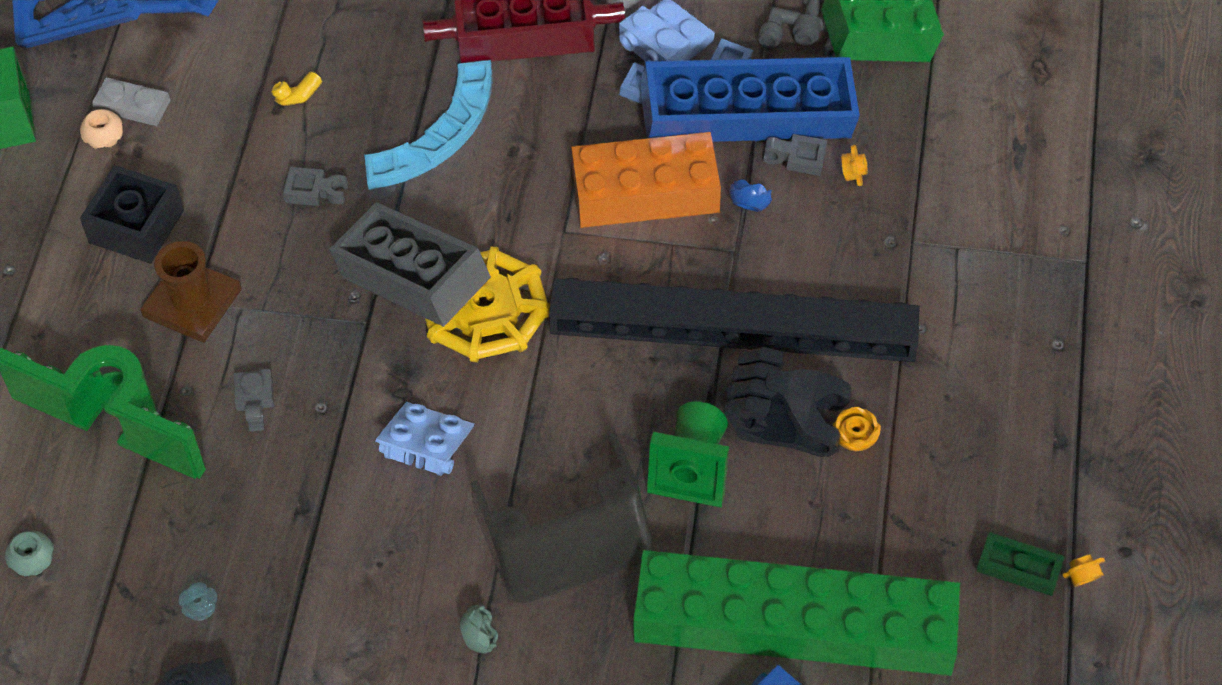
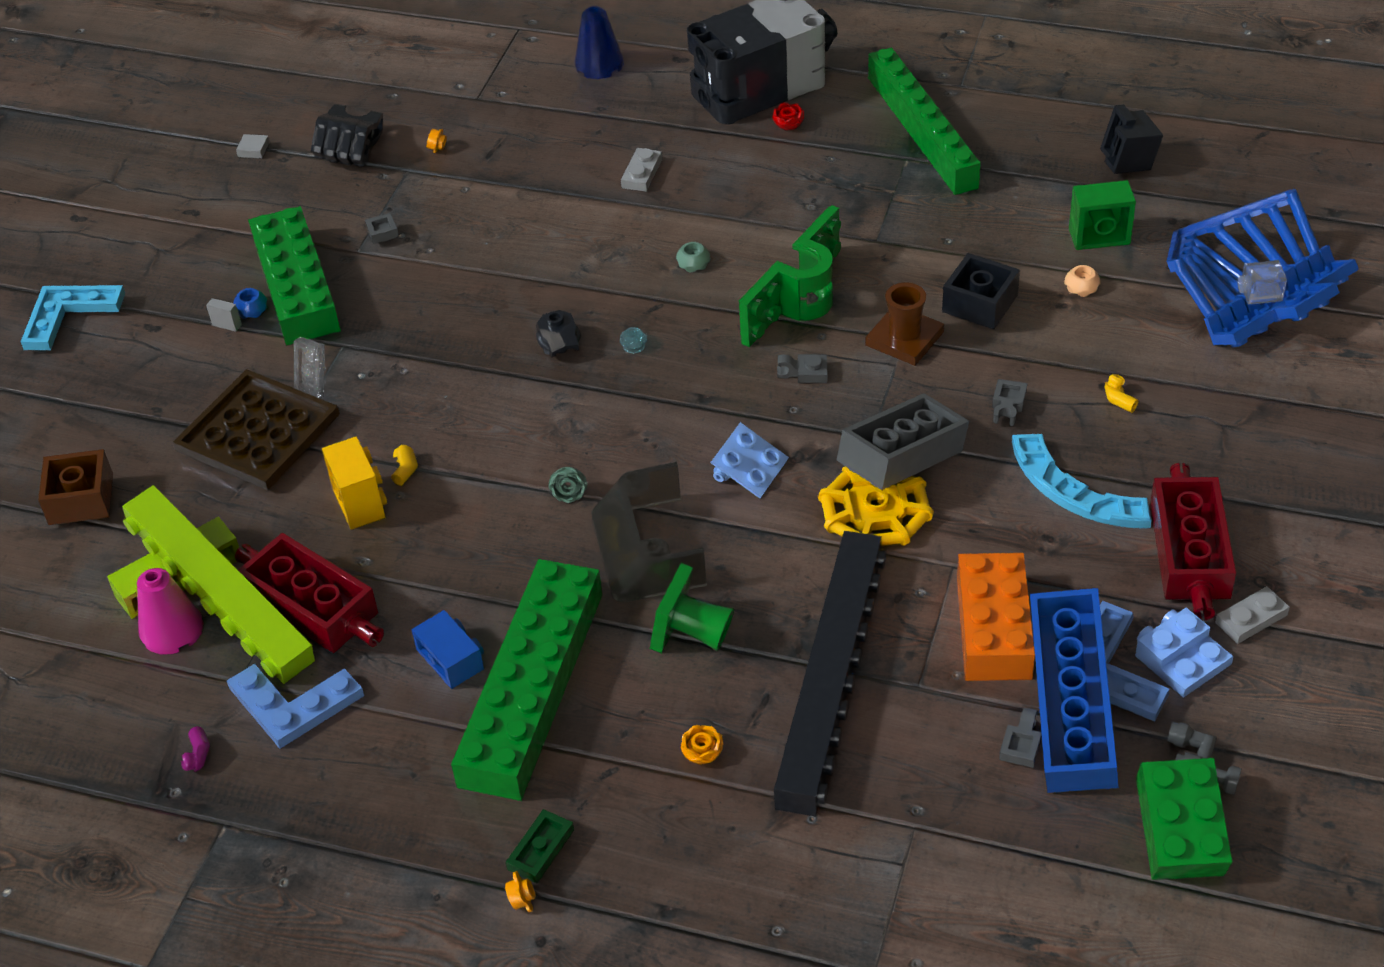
camera: 100 degrees right, 10 degrees down
(132, 101) = (1112, 298): light grey plate -> none
(750, 196) = (972, 693): blue plate -> none
(784, 405) = (736, 686): black piece -> none
(854, 165) = (1006, 775): light orange plate -> none

